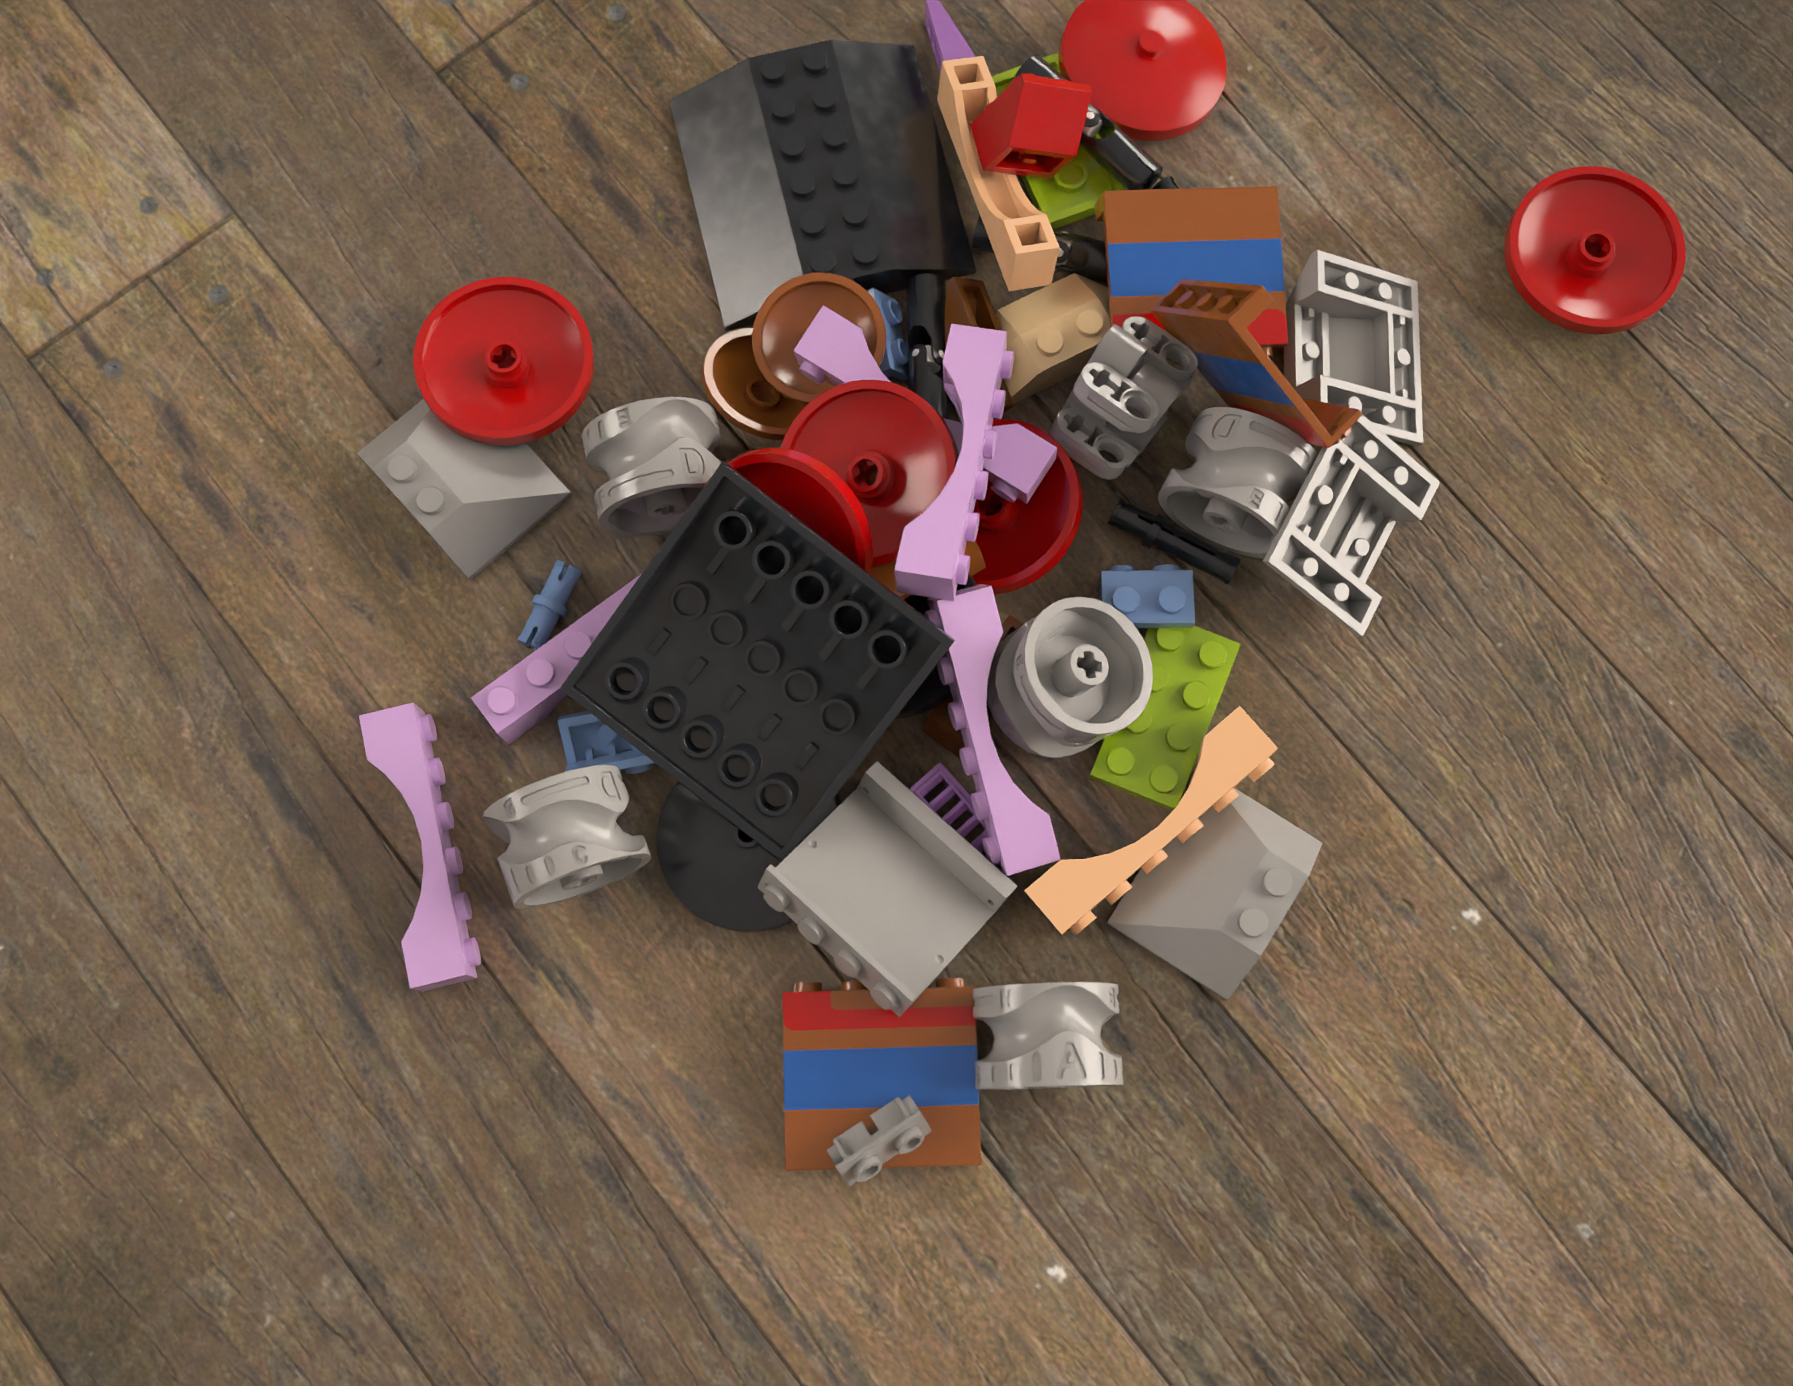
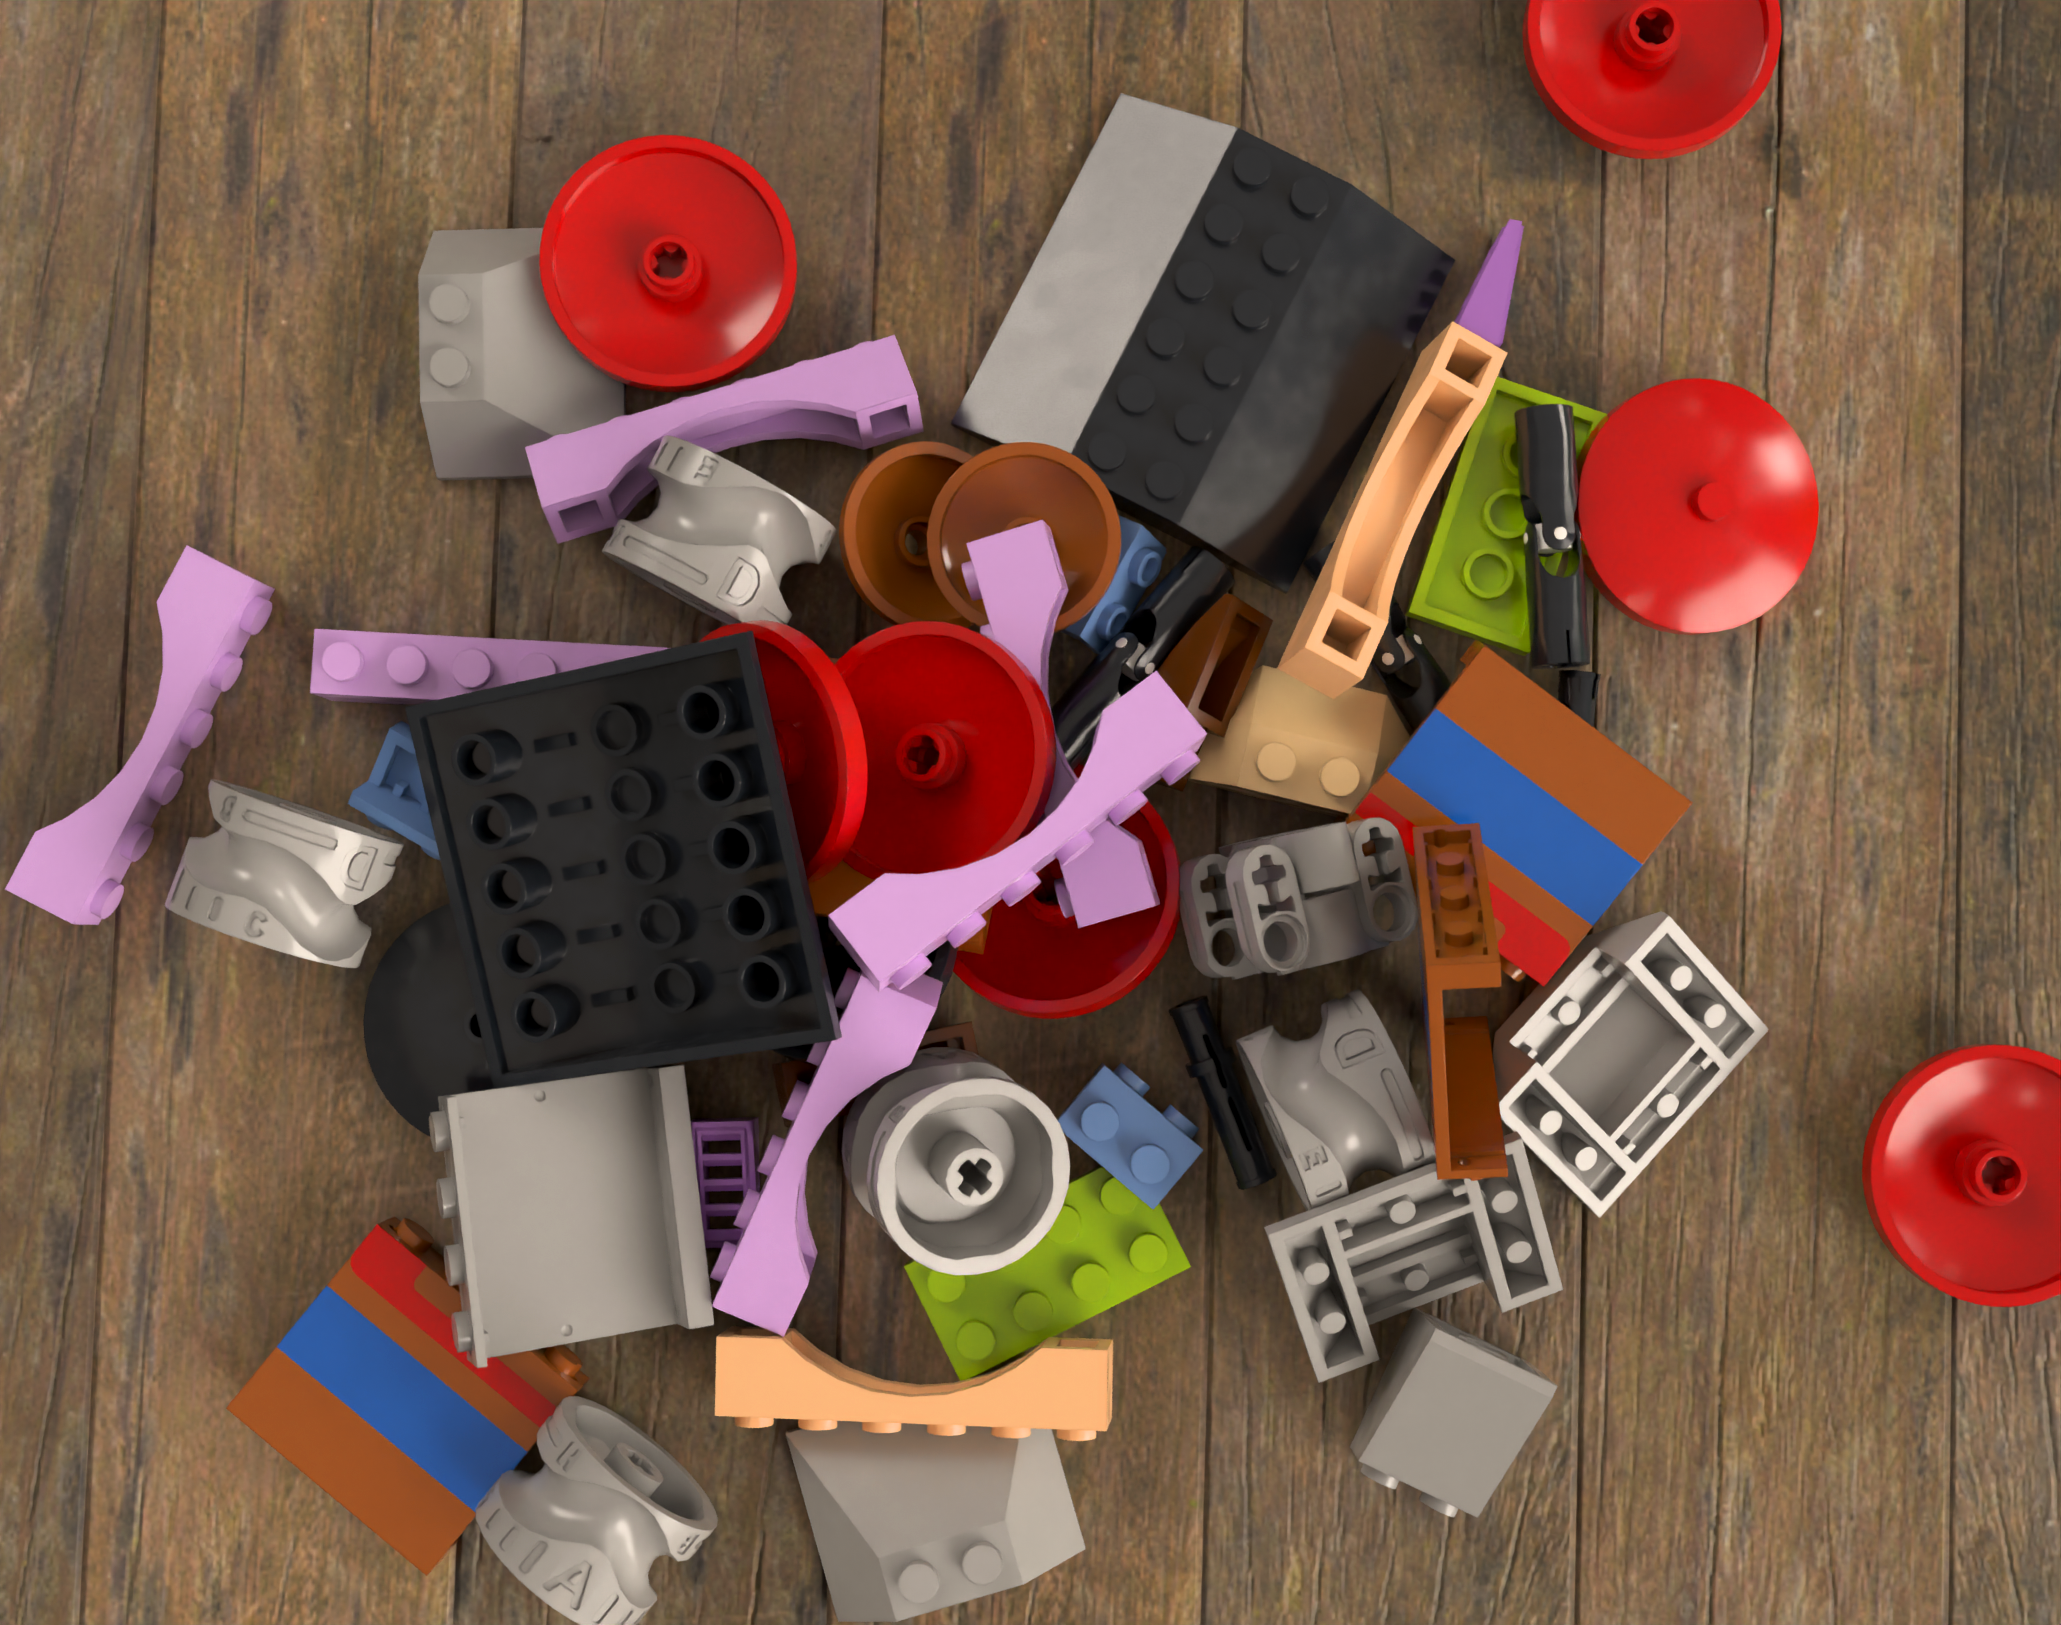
camera: 40 degrees right, 10 degrees up
(549, 605) = (494, 586): medium blue pin -> none
(660, 351) = (844, 398): none -> lavender arch
(861, 1155) = (312, 1462): light grey hinge -> none
(1032, 126) = (1474, 496): red slope -> none
(1443, 597) = (1449, 1415): none -> light grey slope

